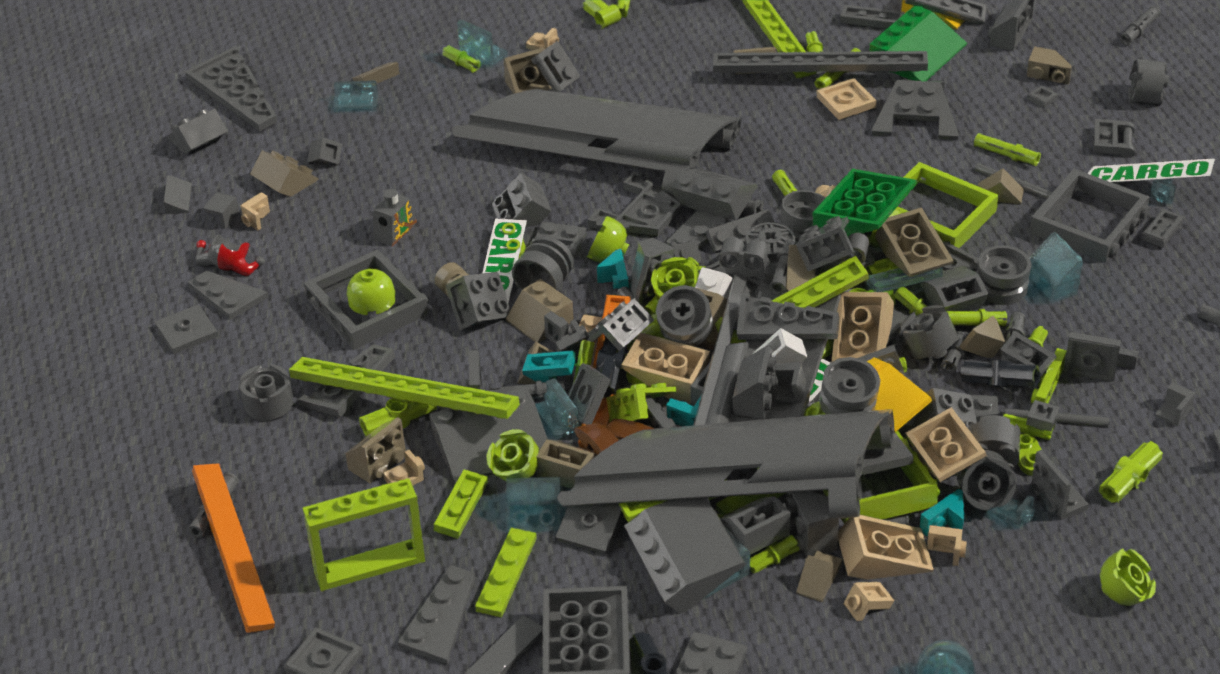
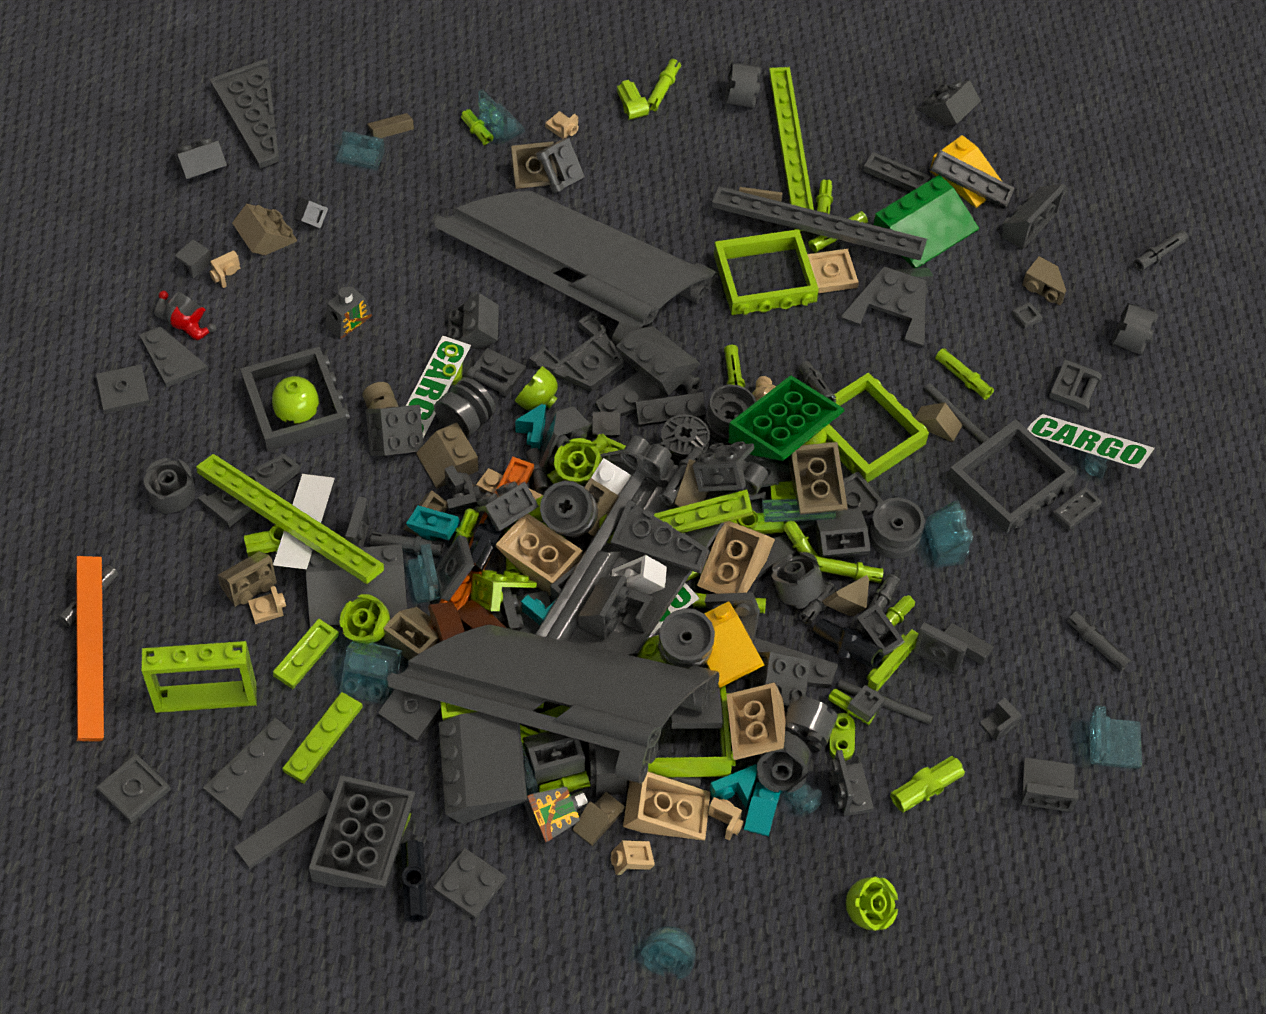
camera: 10 degrees right, 15 degrees up
(177, 195) = (159, 229): dark grey slope -> none
(415, 412) = (311, 499): none -> white sticker
(744, 100) = (760, 245): none -> lime window
(771, 575) = (553, 811): none -> torso
(979, 531) = (761, 810): none -> teal slope

